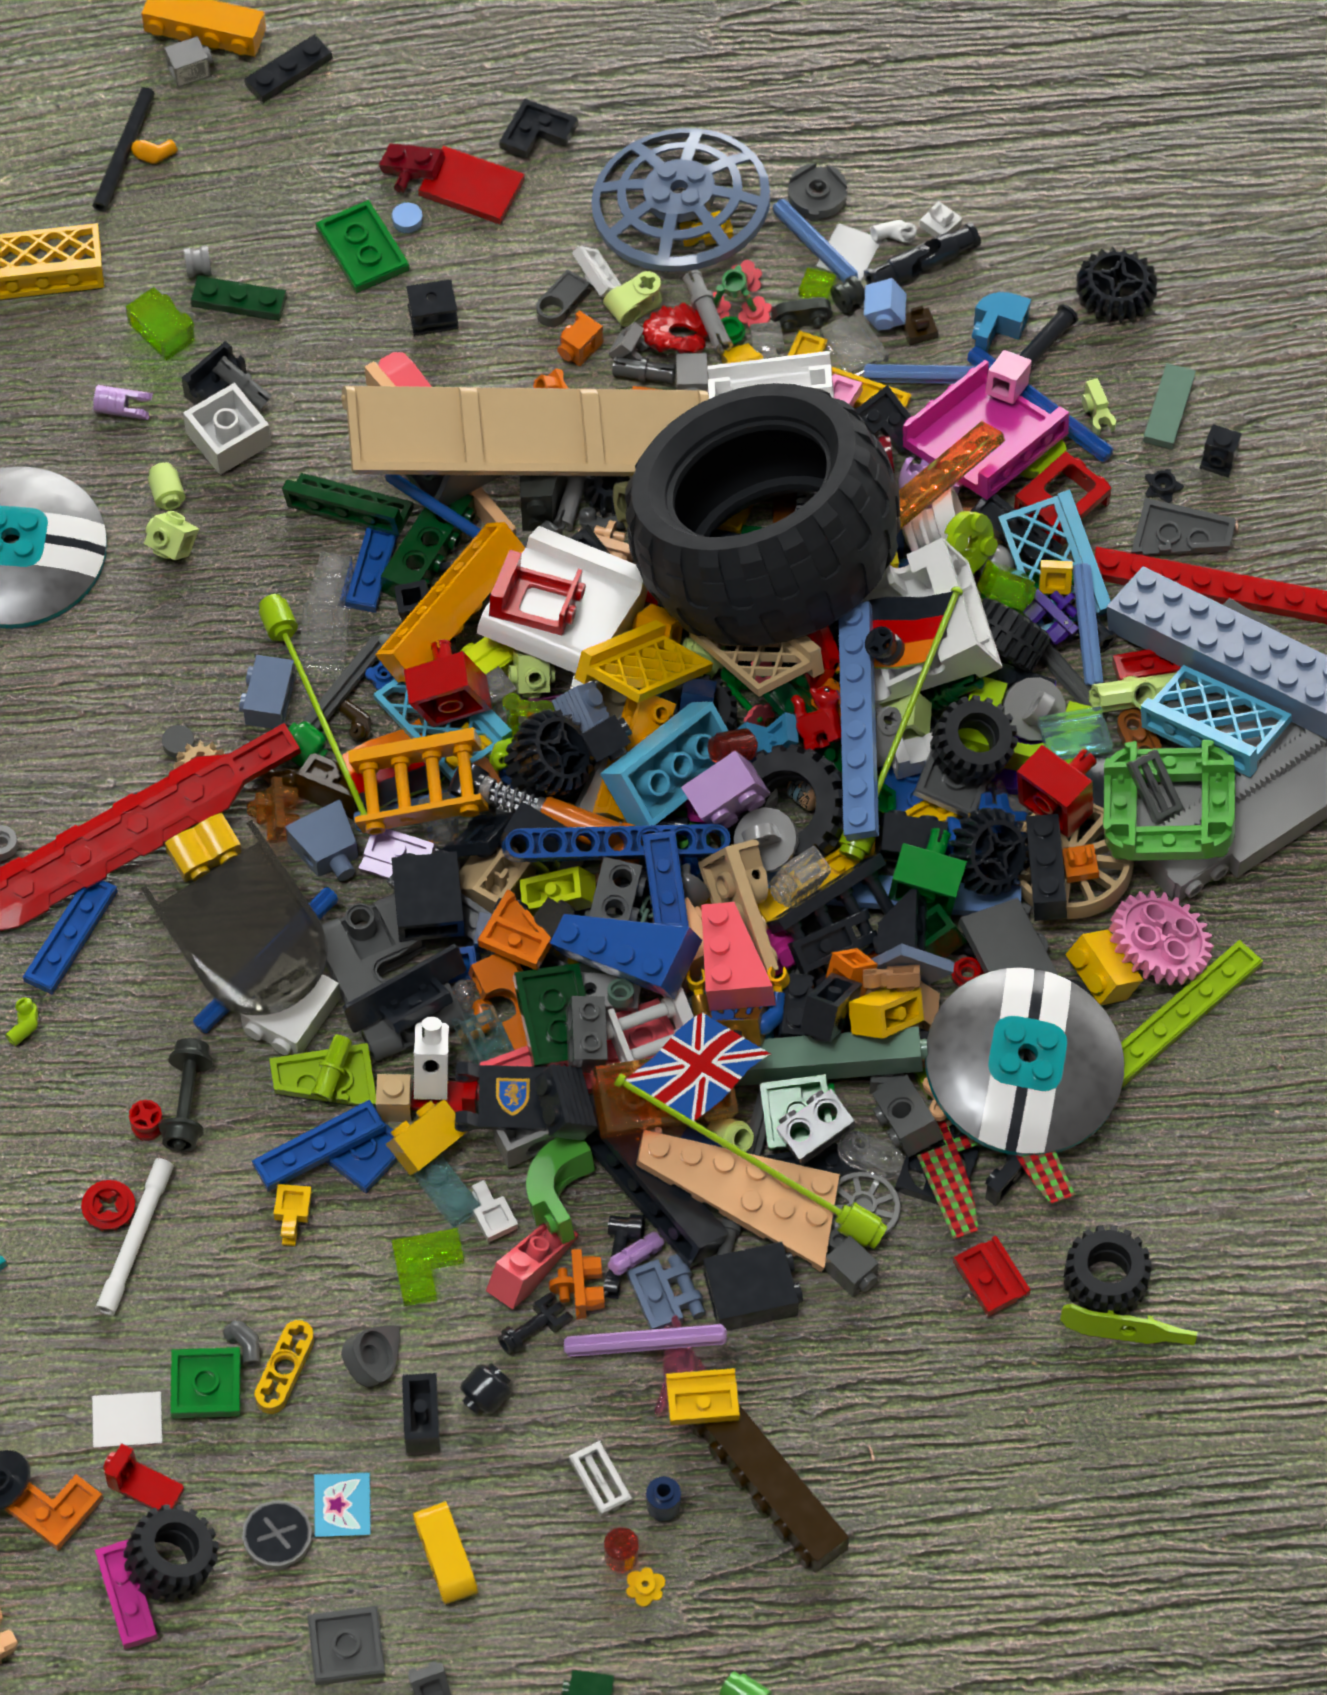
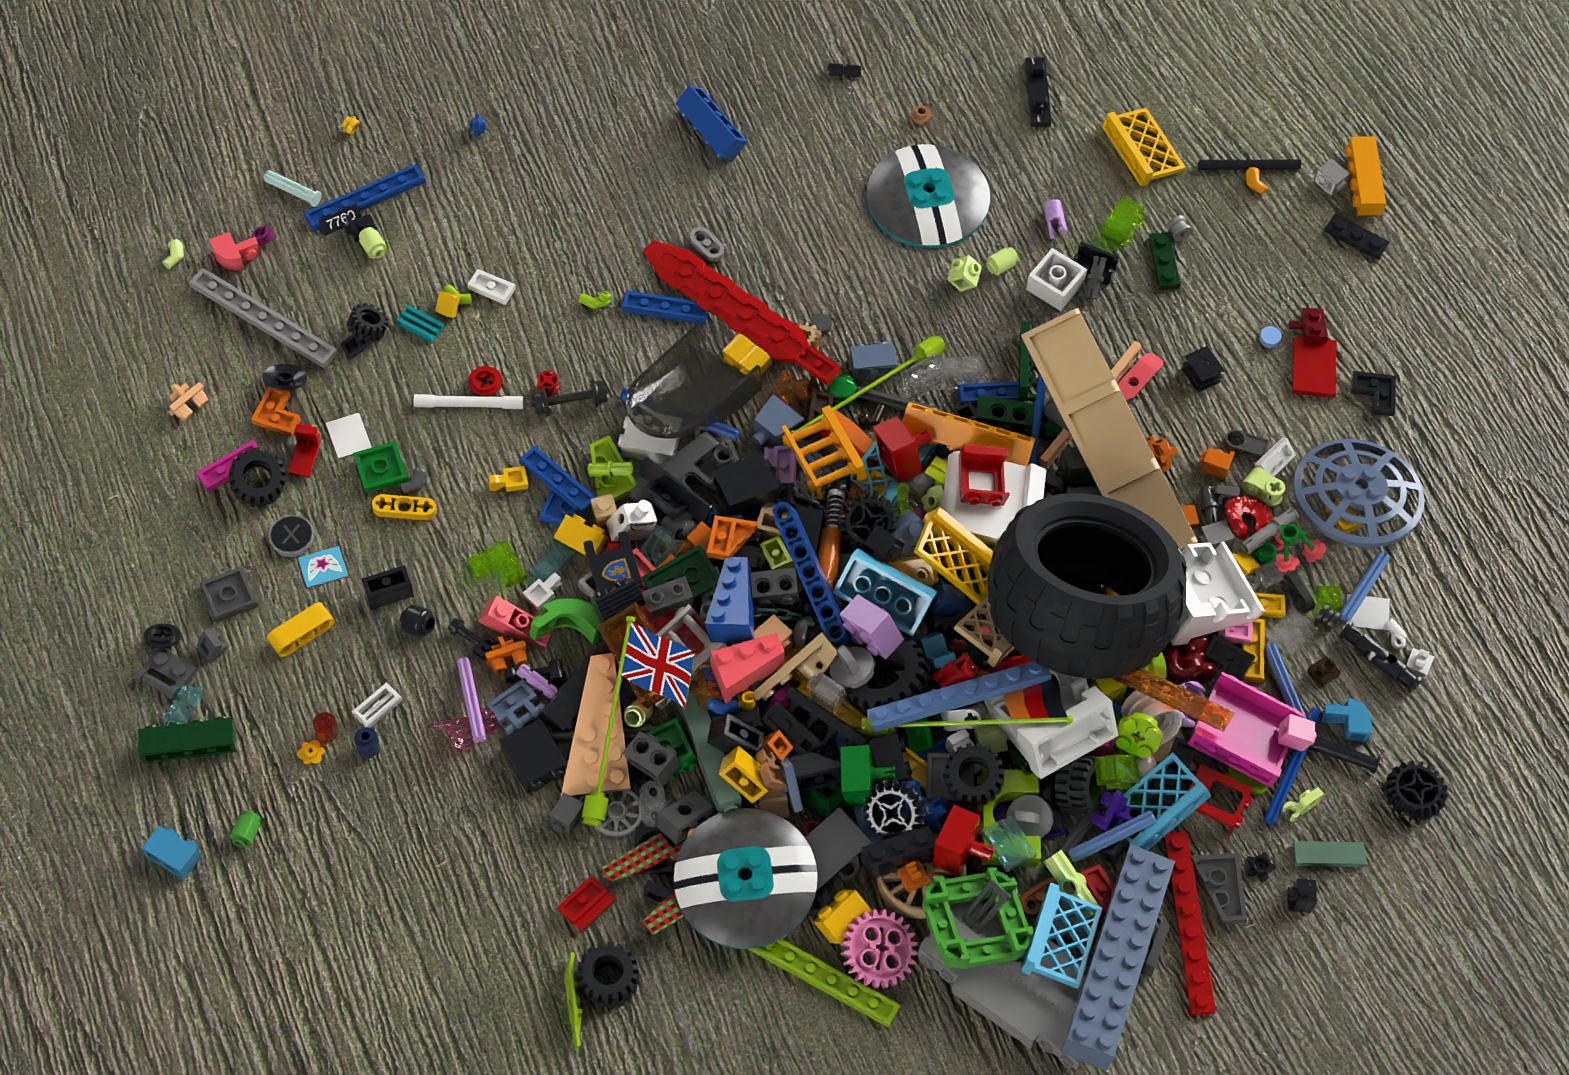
camera: 70 degrees right, 0 degrees up
(362, 246) = (1236, 318): green tile -> none
(372, 1354) = (424, 550): dark grey piece -> none
(665, 879) = (791, 609): blue tile -> none
(702, 1397) = (436, 741): yellow plate -> none
(729, 741) = (908, 622): clear red brick -> none
(775, 1490) = (399, 802): dark brown brick -> none
(817, 205) = (1406, 588): dark grey plate -> none
(877, 642) = (1016, 691): black wheel -> none
(885, 304) = (1327, 641): light blue brick -> none
(1055, 576) = (1139, 802): yellow plate -> none

